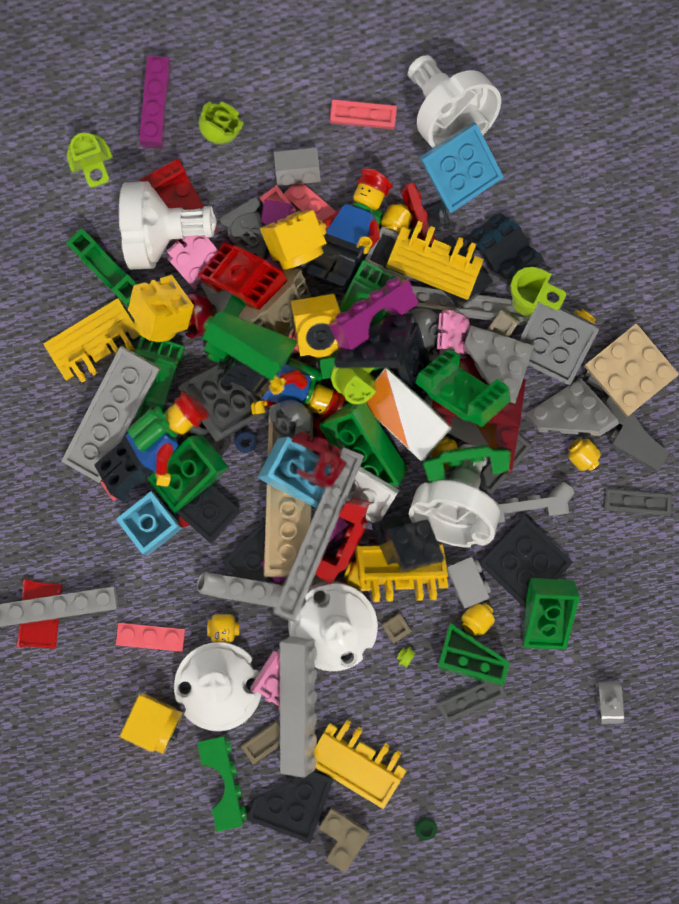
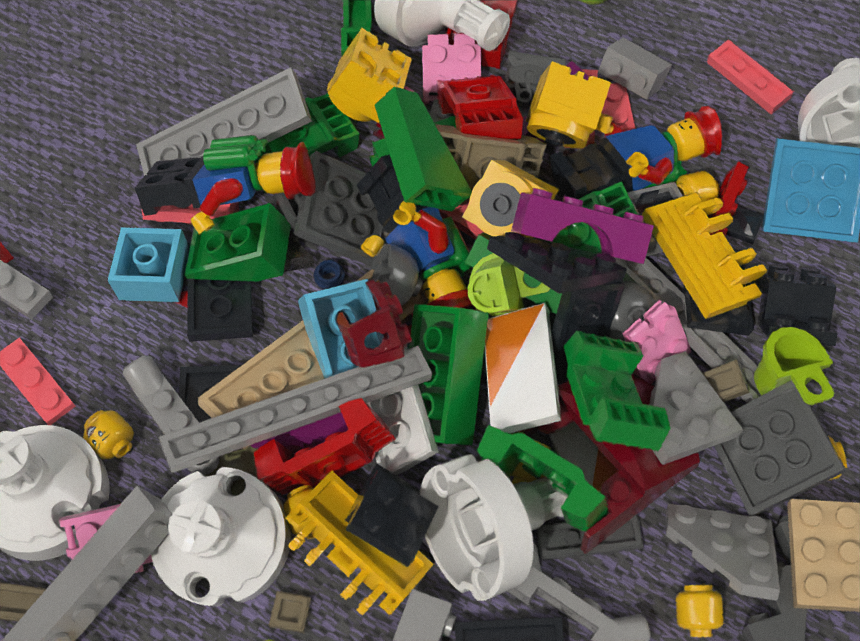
camera: 45 degrees right, 20 degrees down
(91, 339) = (262, 59): yellow hinge -> none

